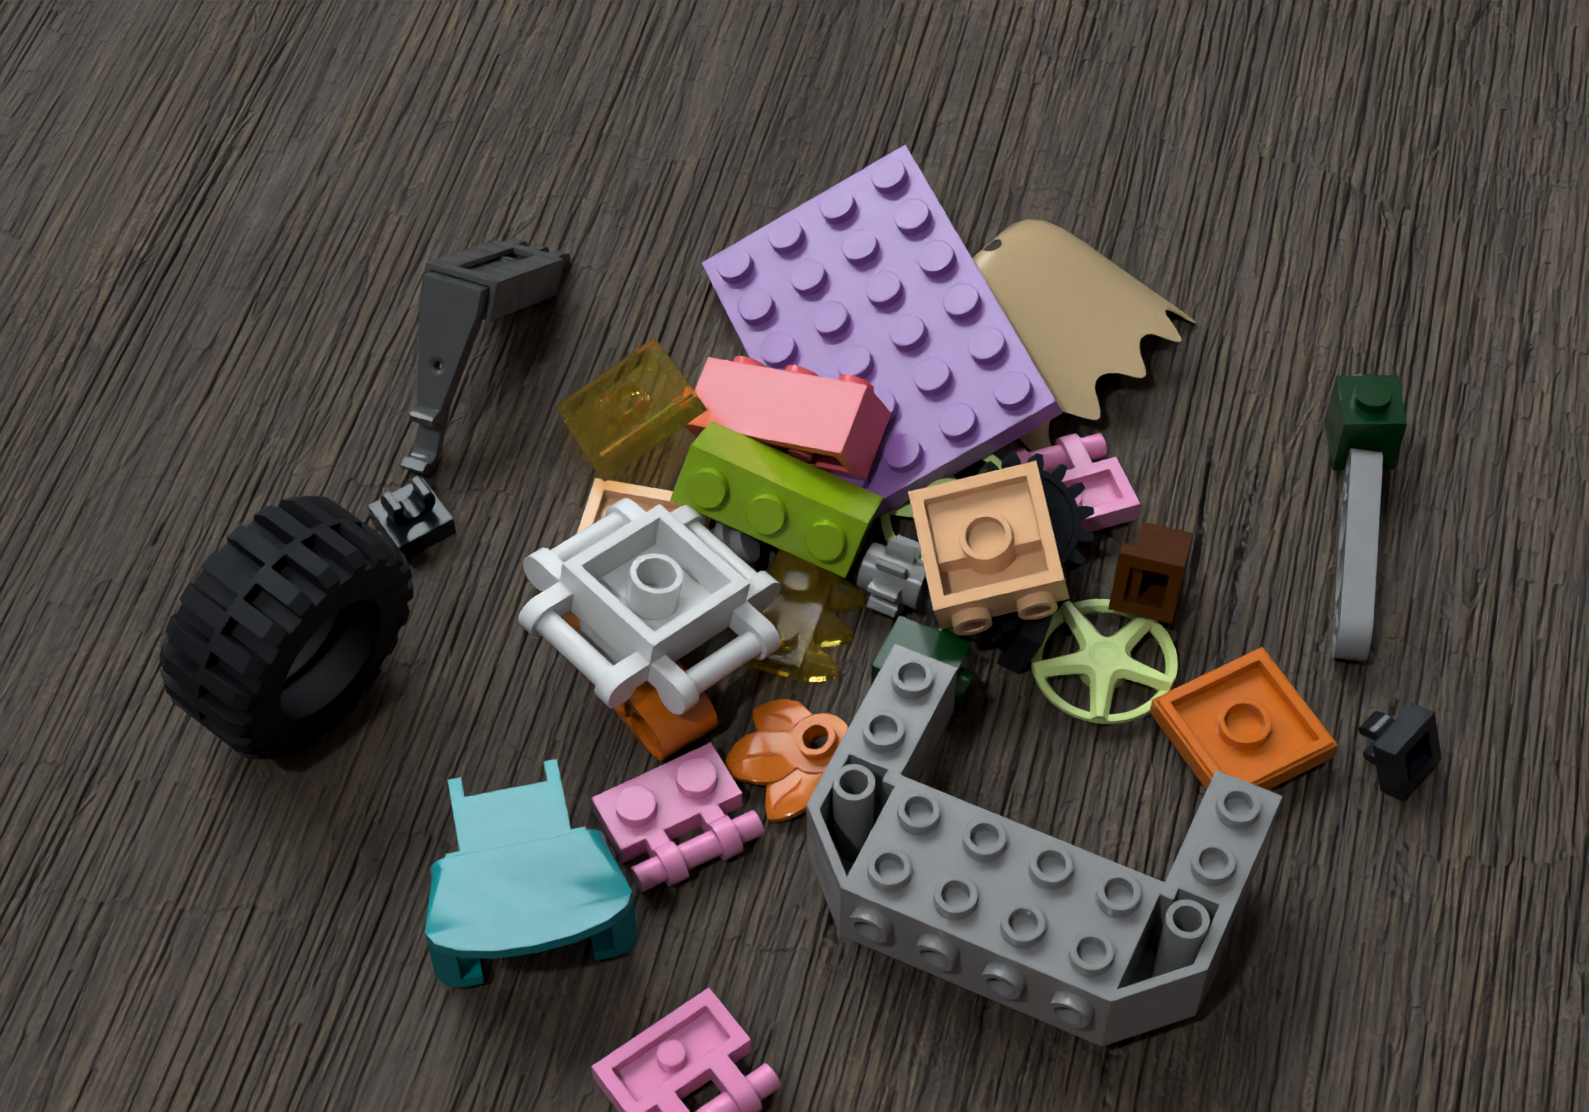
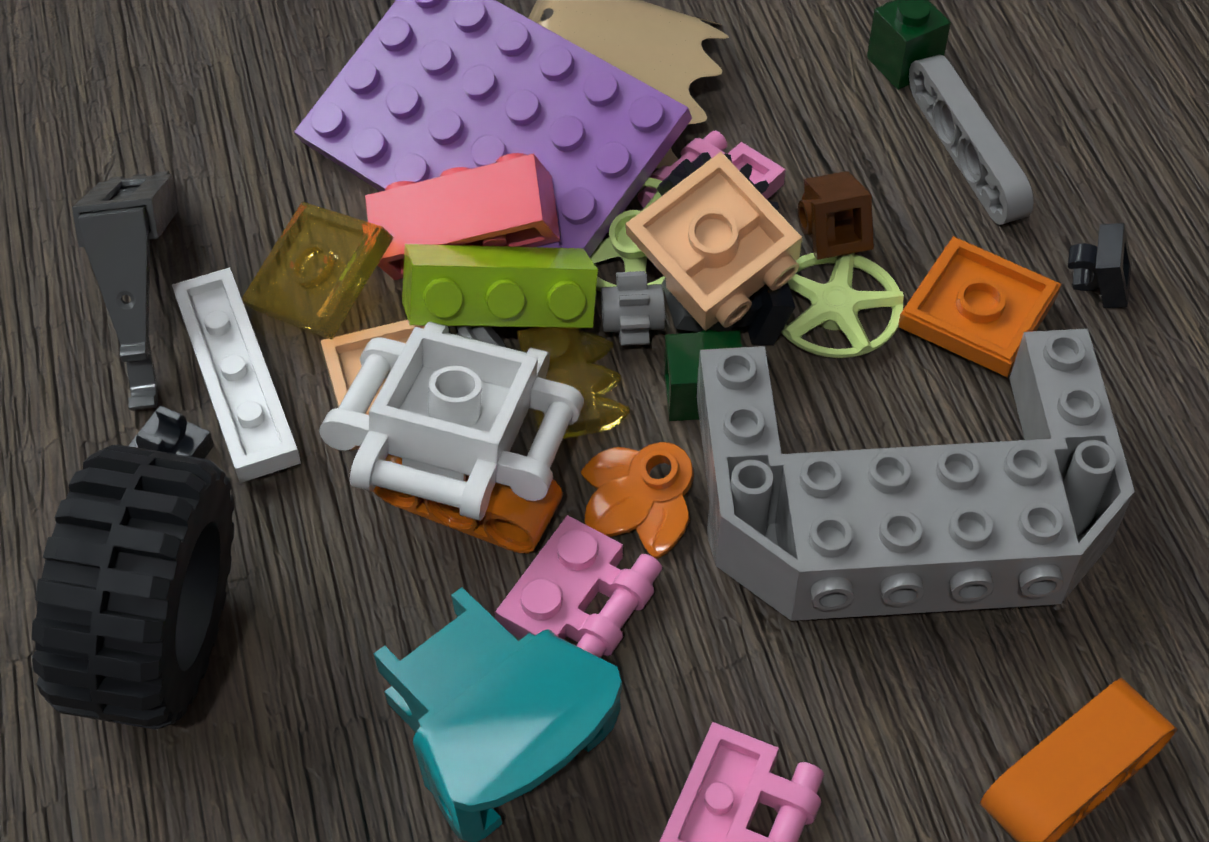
camera: 30 degrees left, 0 degrees up
(506, 476) = (236, 375): none -> white plate

